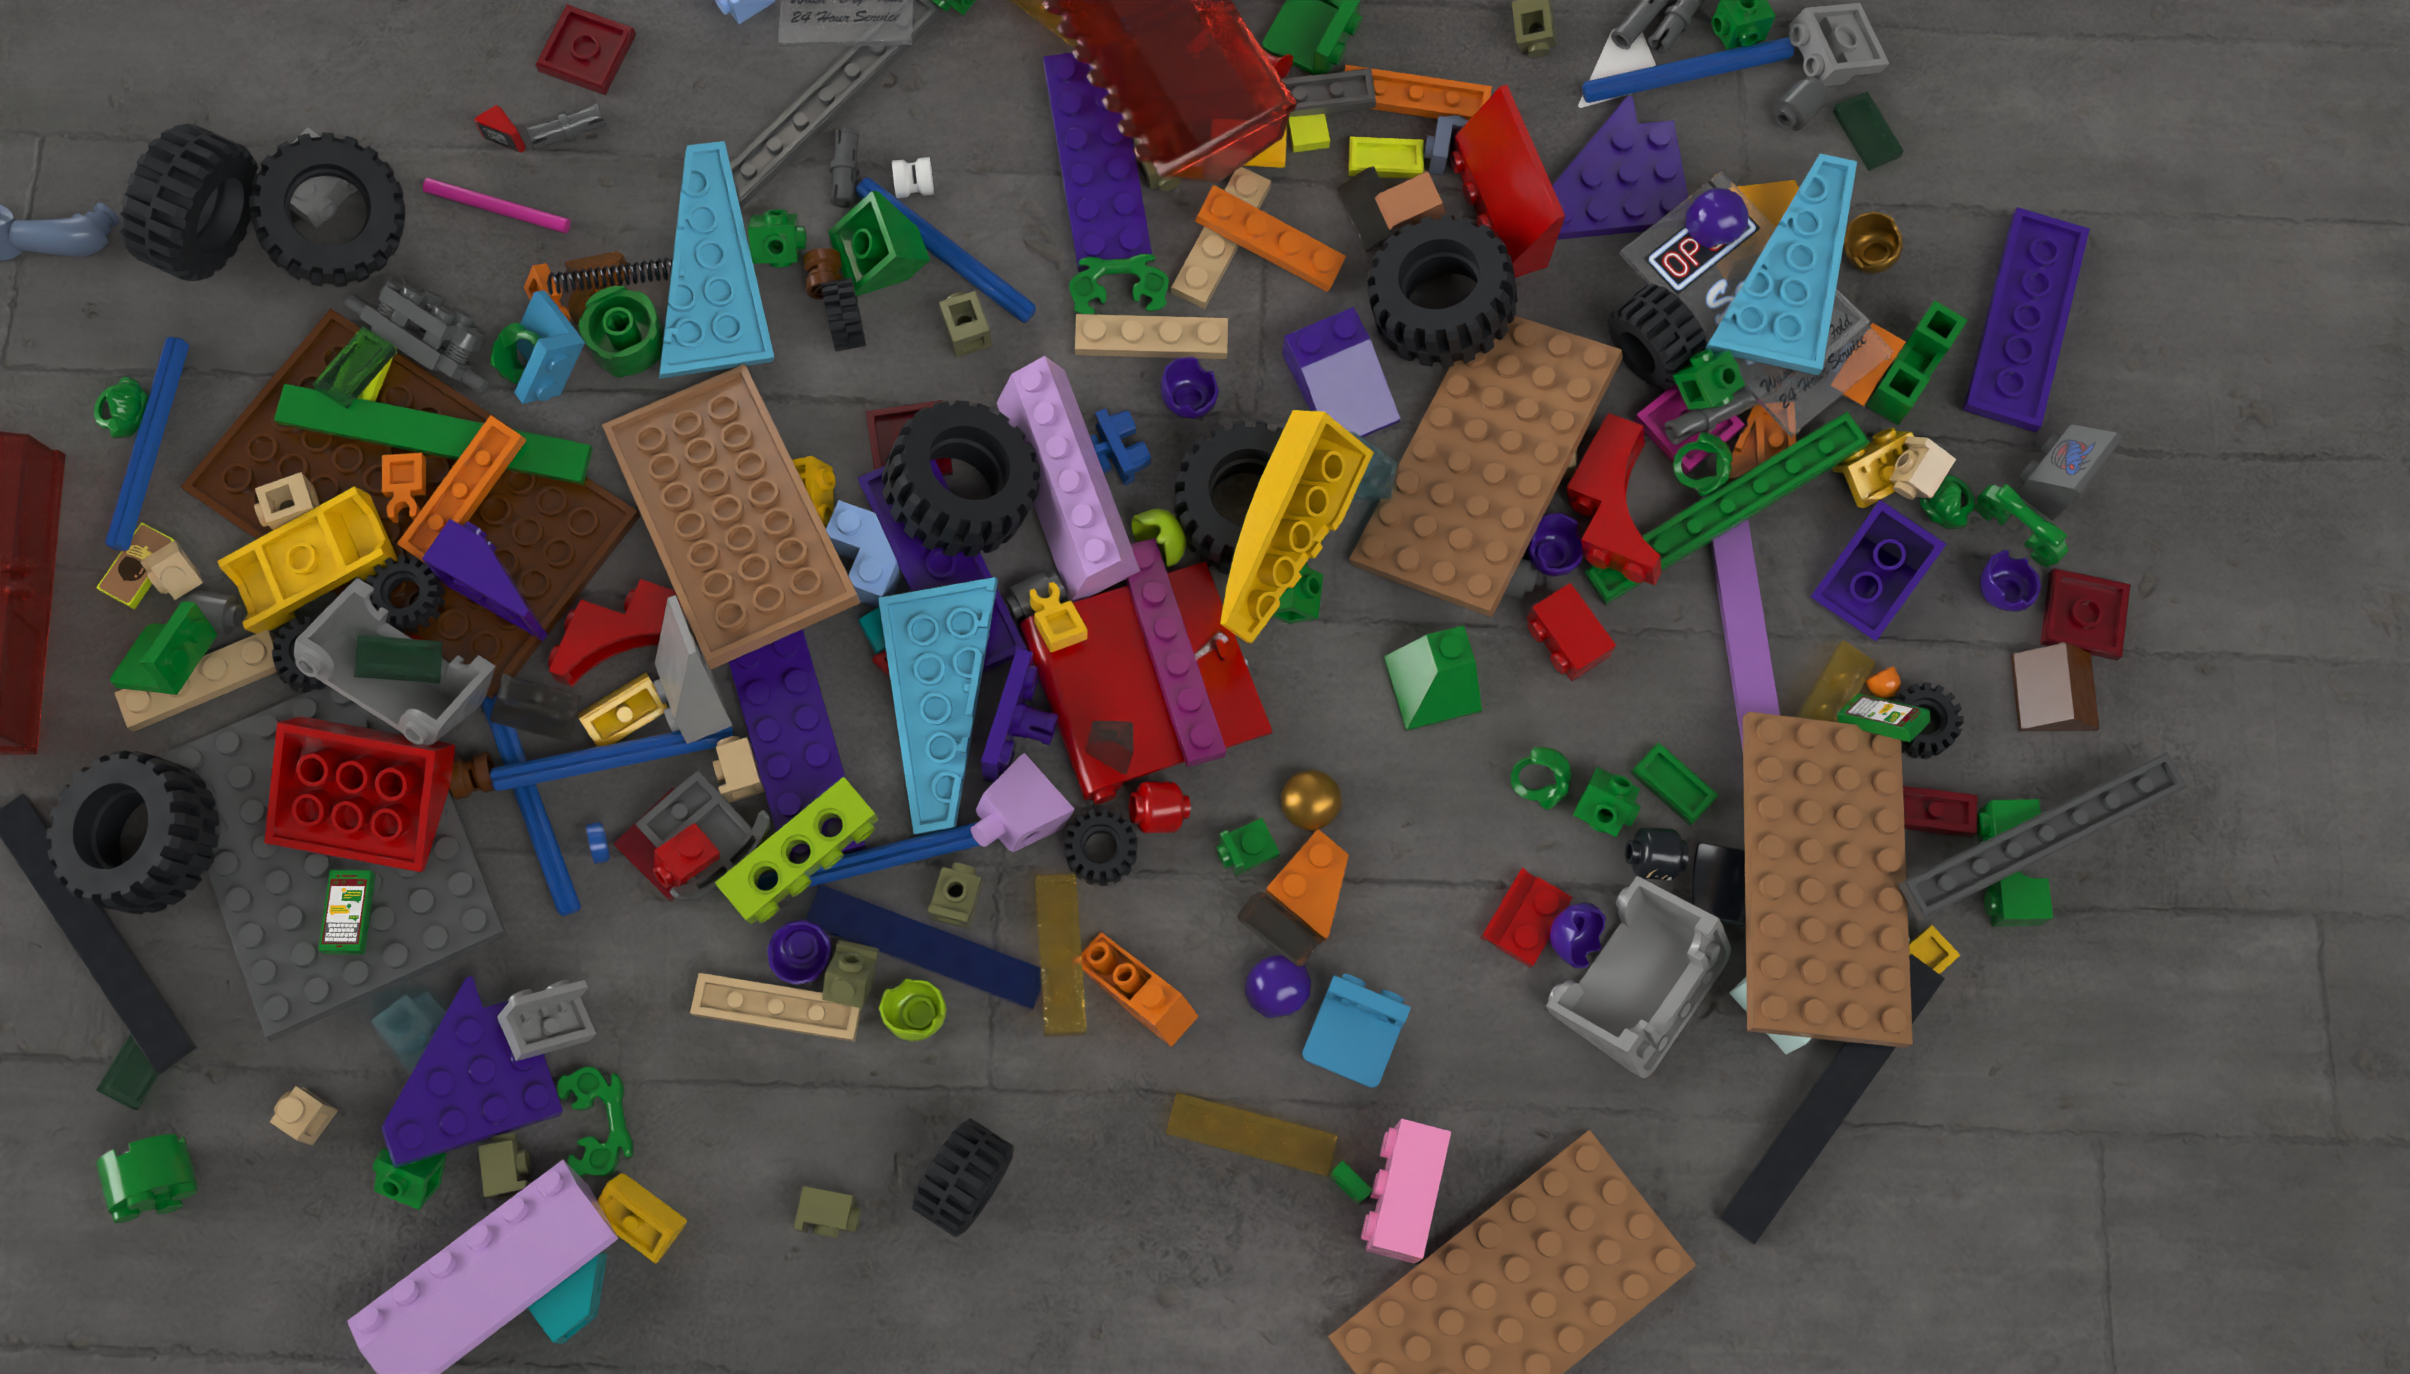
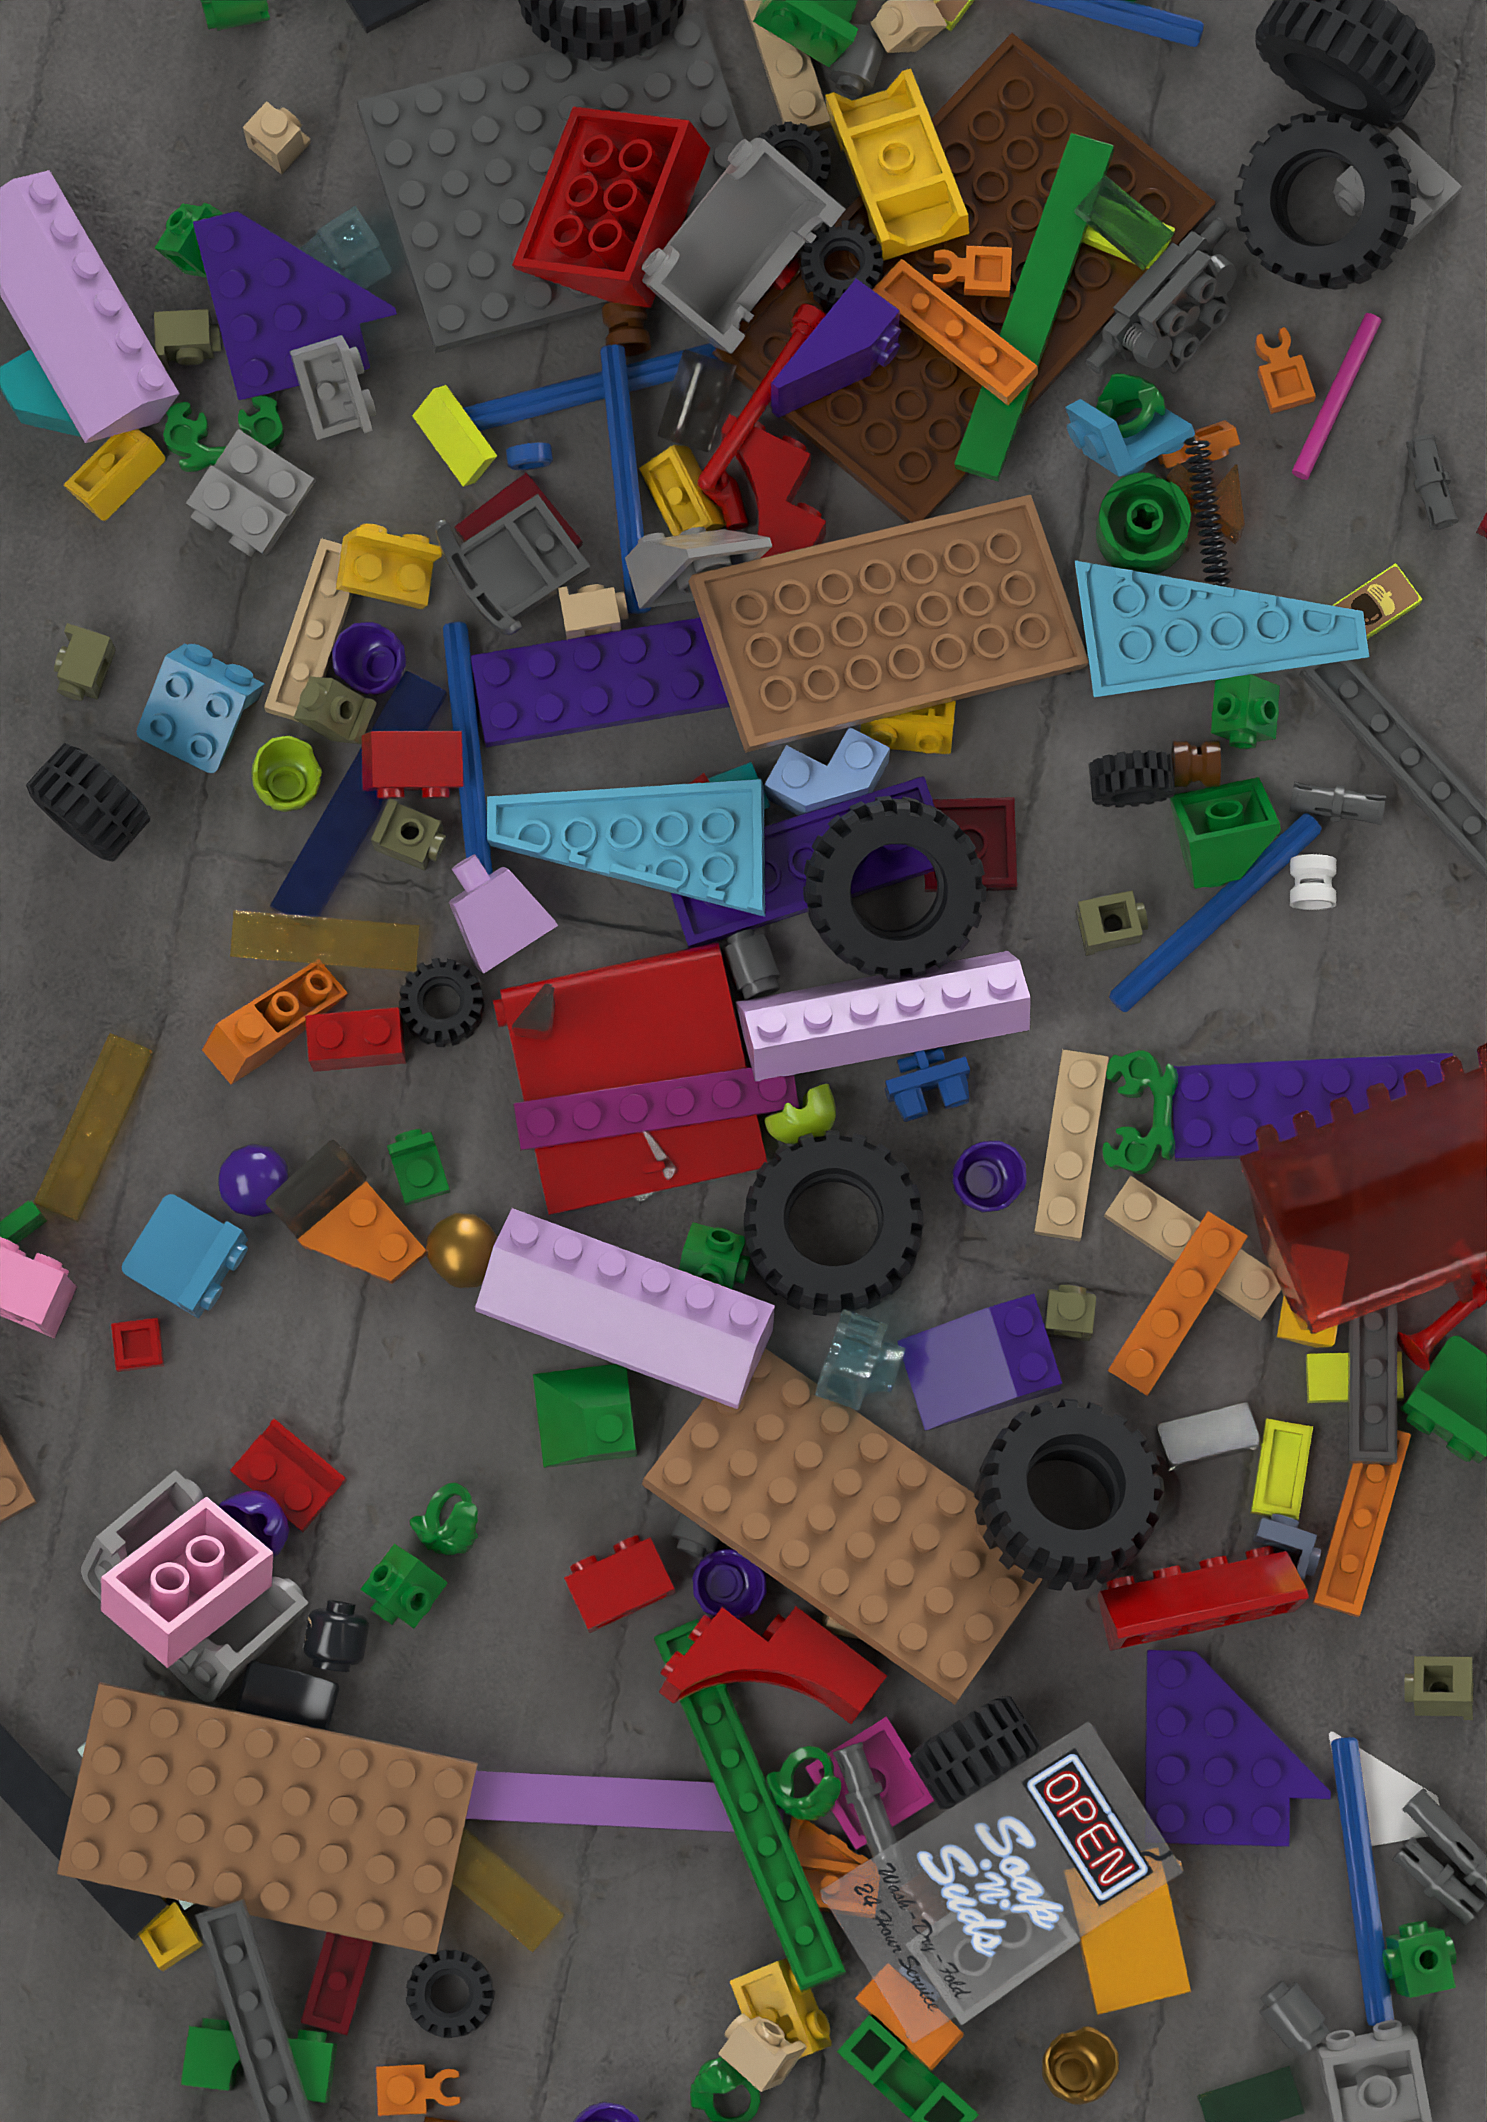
camera: 105 degrees right, 5 degrees up
(279, 495) = (971, 128): tan brick -> none
(347, 912) = (477, 187): tile -> none
(398, 659) = (754, 251): clear green tile -> none
(463, 615) = (804, 323): none -> red piece
(484, 242) = (1283, 378): none -> orange plate
(498, 128) = (1434, 406): red slope -> none
(583, 910) = (454, 435): none -> neon yellow tile
(617, 675) = (728, 497): none -> red arm
(653, 1084) = (249, 494): none -> light grey plate
(667, 153) = (1382, 599): none -> tile
(684, 857) = (489, 543): red bracket -> none
(711, 949) = (387, 565): none -> yellow bracket
(741, 882) = (447, 602): lime brick -> none
(857, 1100) = (197, 706): none -> dark azure bracket
(891, 898) = (412, 762): none -> red brick
(1016, 718) = (598, 919): dark purple plate -> none
(1057, 622) = (703, 978): yellow plate -> none
(1145, 912) = (355, 1039): none -> red brick
(1158, 807) = (476, 1072): red head -> none
(1289, 314) = (1070, 1313): none -> olive brick
(1292, 511) = (793, 1259): yellow wedge -> none
(1346, 652) = (625, 1308): none -> lavender slope
(1410, 202) = (1197, 1483): nougat slope -> none
(1437, 1064) = (137, 1344): none -> red tile
(1647, 972) = (186, 1581): none -> bright pink brick
(1674, 784) = (420, 1678): green tile -> none
(1709, 380) = (899, 1797): green brick -> none
(1717, 217) = (1114, 1848): dark purple hair -> none
(1790, 292) = (1001, 1918): medium azure wing -> none
(1878, 570) = (648, 1981): dark purple slope -> none
(1884, 717) = (450, 1932): tile -> none
(1885, 683) = (505, 1957): orange hinge -> none
(2002, 746) = (406, 2089): none -> orange plate

